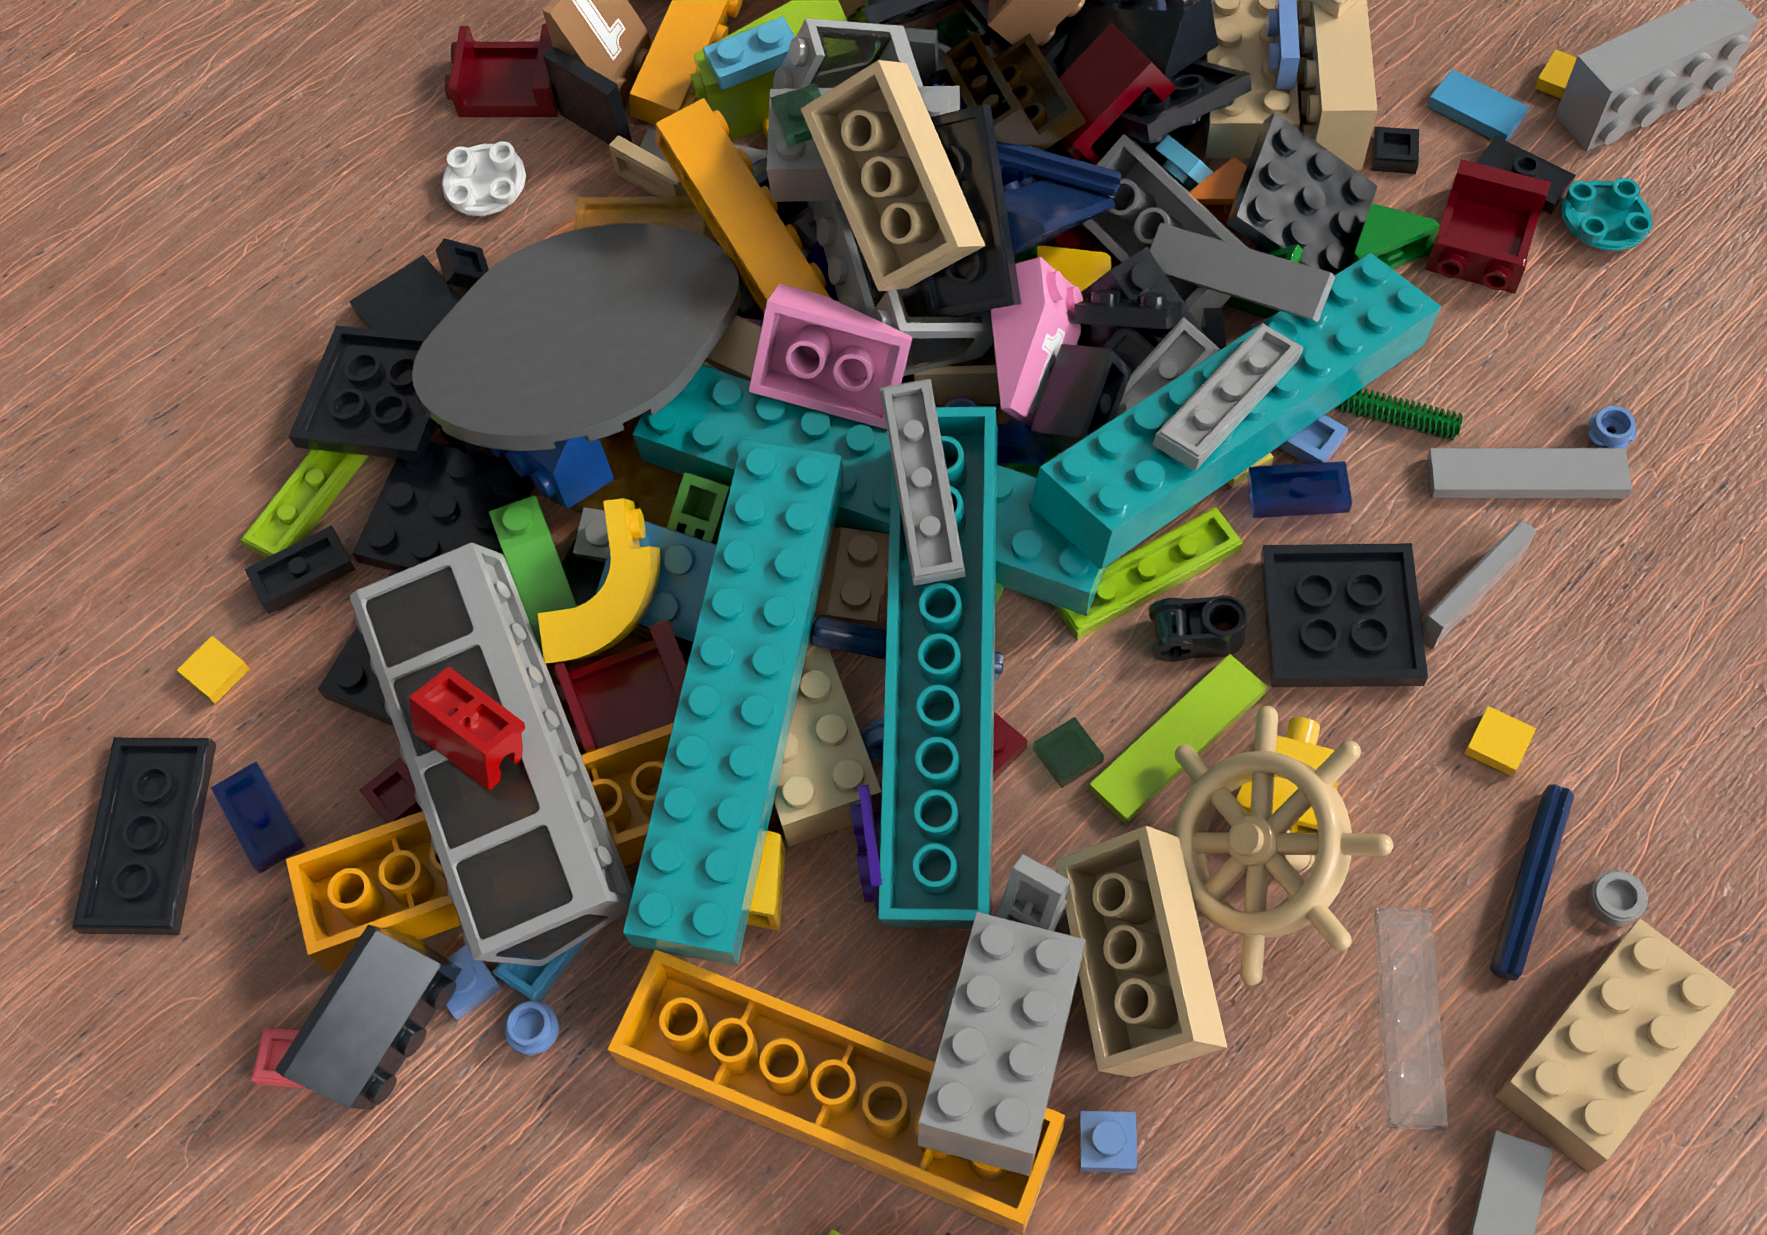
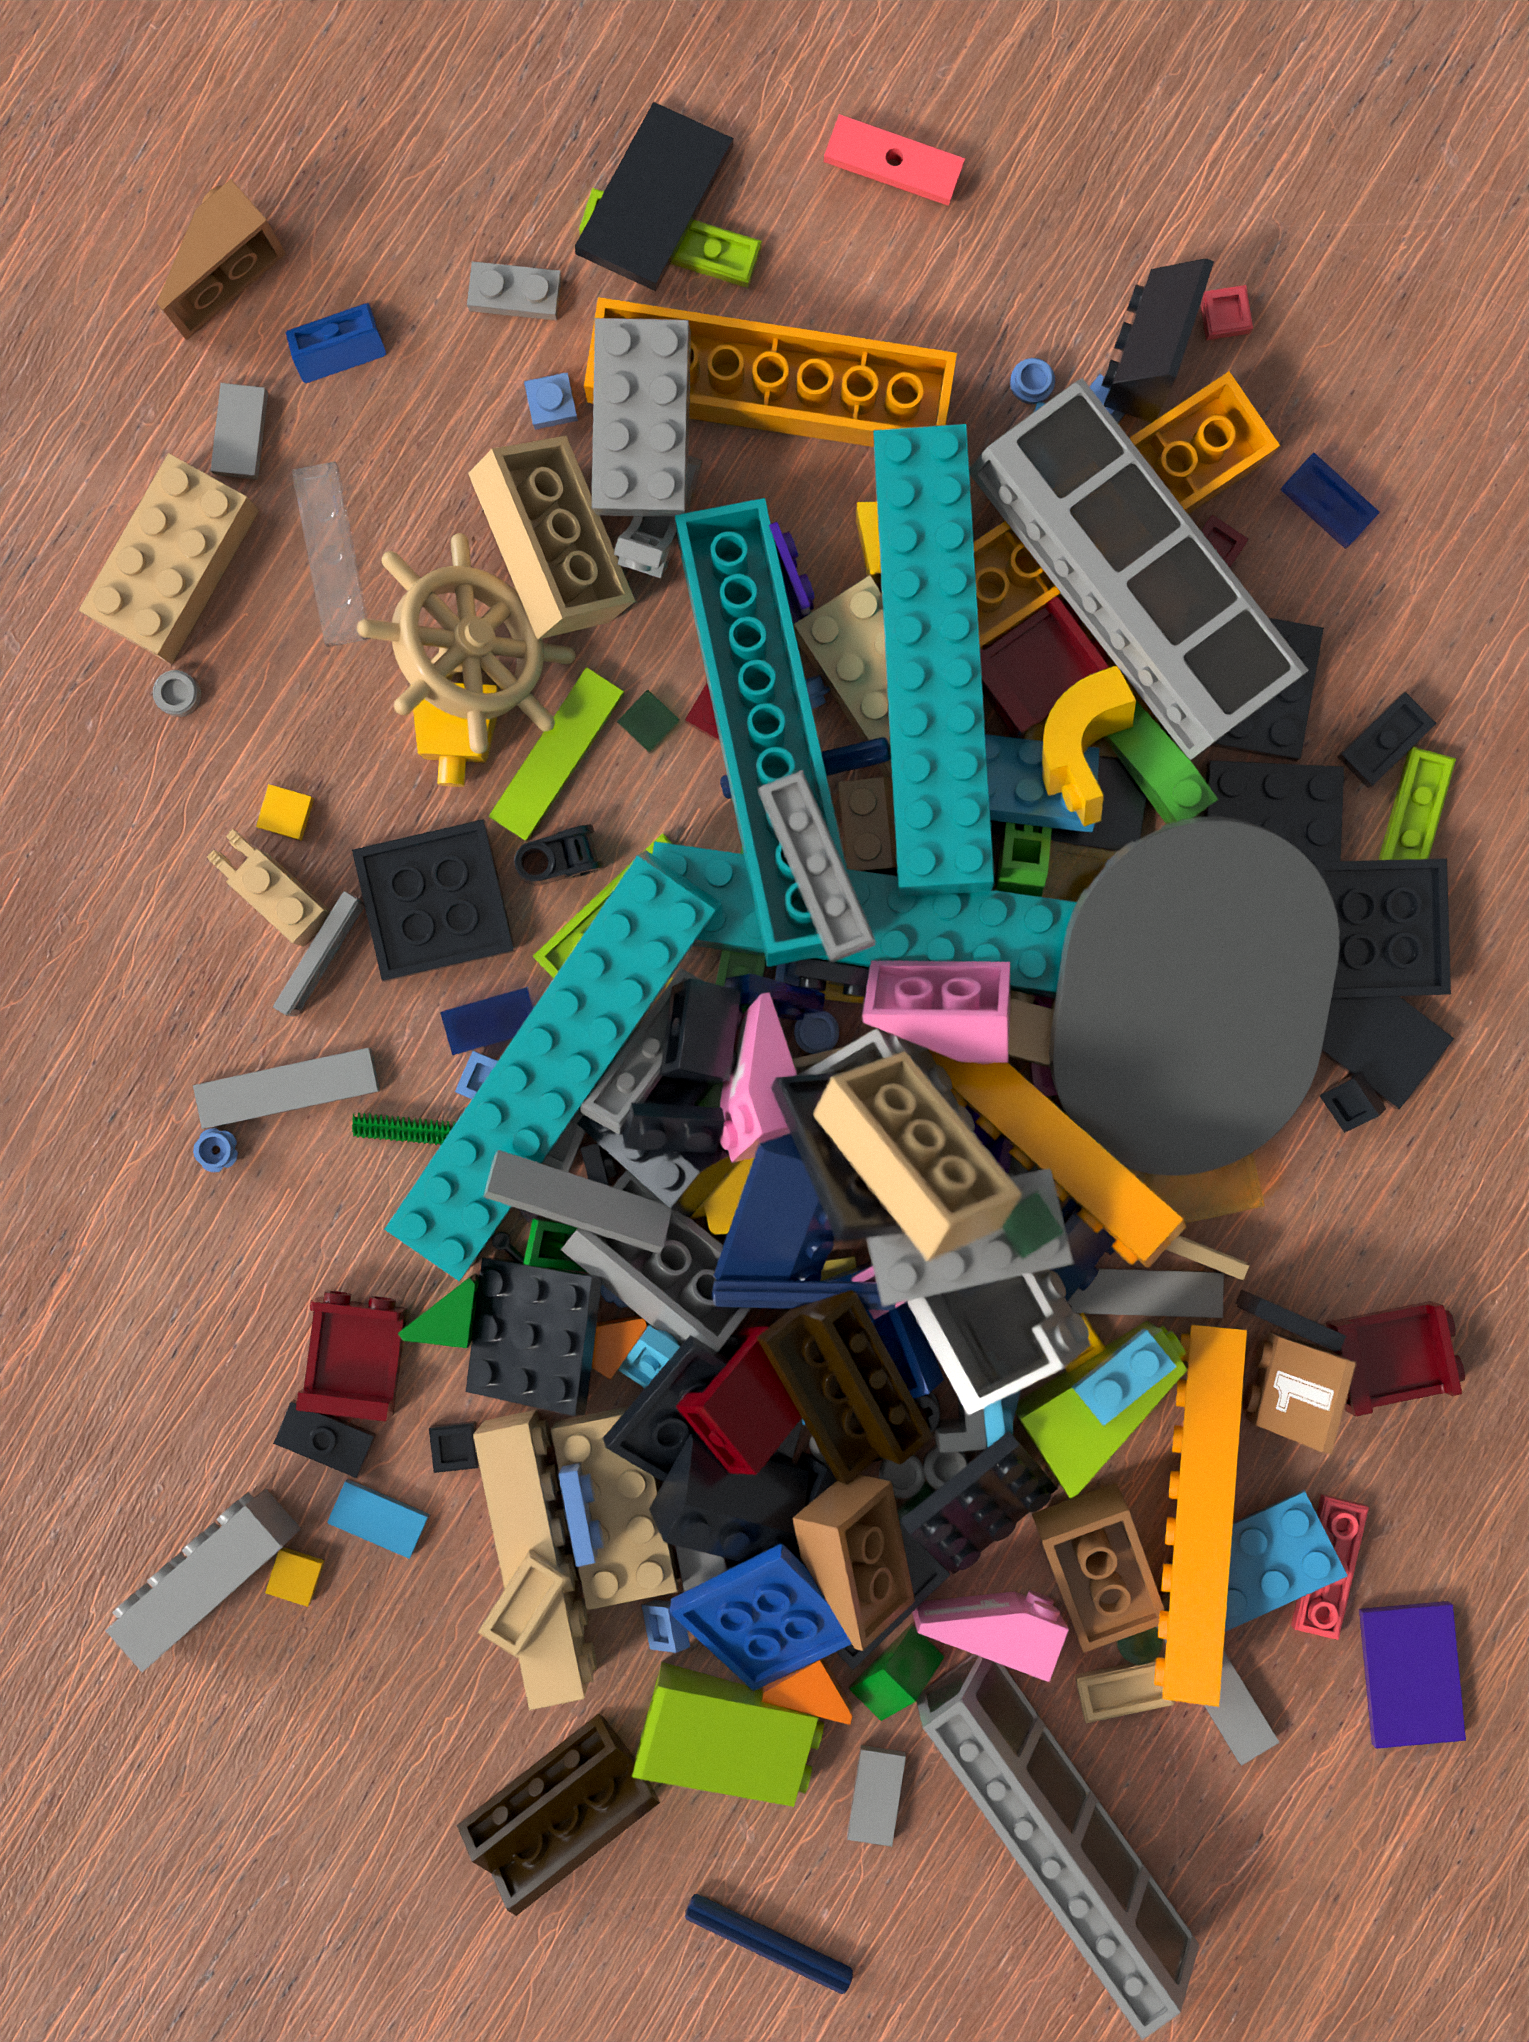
camera: 160 degrees right, 25 degrees up
(145, 836) = (1424, 468): black tile -> none
(213, 669) = (1428, 629): yellow tile -> none
(466, 726) = (1151, 556): red hinge -> none
(483, 178) = (1372, 1216): white dish -> none
(592, 536) = (1116, 827): light grey plate -> none
(1227, 397) = (560, 1036): light grey tile -> none
(1524, 653) = (272, 891): none -> tan hinge
(1532, 883) = (246, 691): dark blue axle -> none
(1607, 214) = (239, 1401): teal dish -> none

